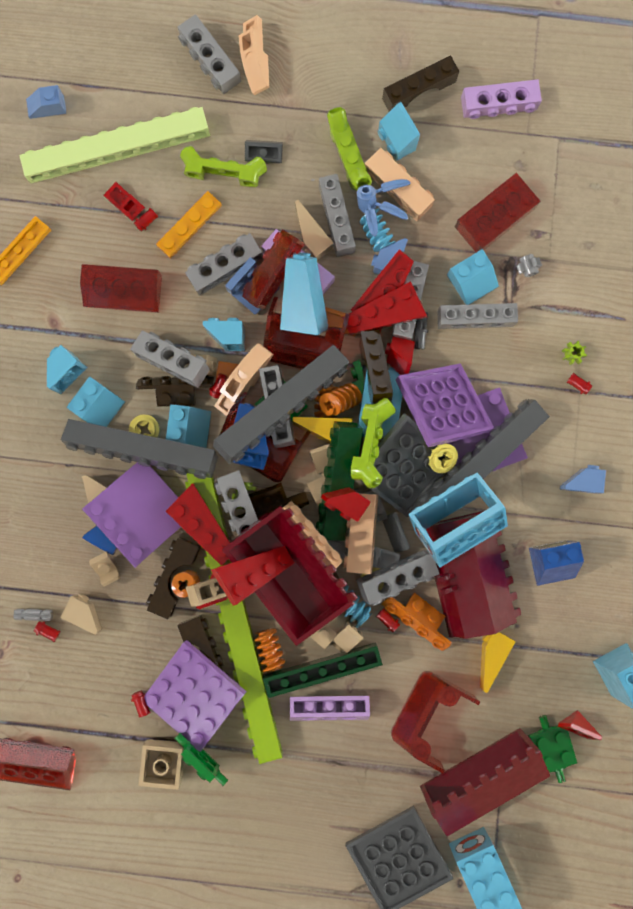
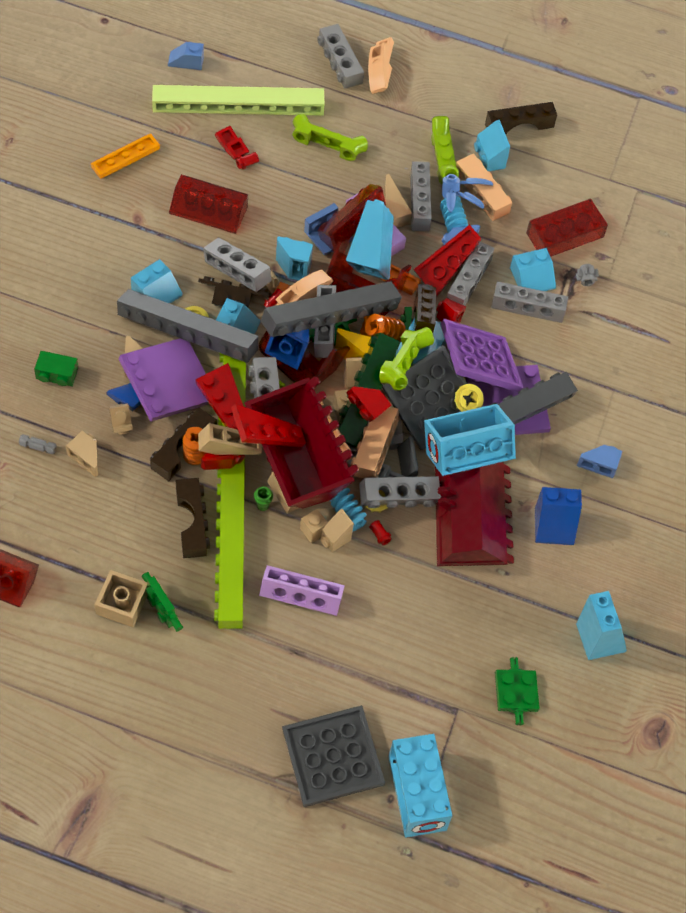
camera: 10 degrees right, 25 degrees down
(25, 528) = (56, 368): none -> green brick
(46, 631) = (46, 460): red pin -> none
(62, 369) = (138, 249): medium azure slope -> none
(140, 704) = (116, 545): red pin -> none
(189, 224) = (284, 174): light orange plate -> none
(193, 695) = (172, 543): medium lavender plate -> none
(220, 274) = (295, 210): light grey brick -> none
(266, 626) = (263, 497): none -> bright green cone
(268, 150) = (374, 137): dark grey slope -> none
(269, 648) = (257, 528): orange piece -> none
(322, 670) = (305, 554): dark green brick -> none
(392, 308) = (450, 271): red wing -> none
(418, 711) = (374, 635): clear red windscreen -> none
(420, 333) = (474, 302): dark grey axle -> none
(420, 617) = (412, 539): orange bracket -> none
(484, 781) = (440, 680): dark red piece -> none
(494, 653) = (481, 582): yellow slope -> none
(527, 90) = (590, 146): lavender brick -> none
(572, 358) = (614, 353): lime gear -> none
(579, 383) = (617, 383): red pin -> none
(580, 726) = (547, 674): red slope -> none

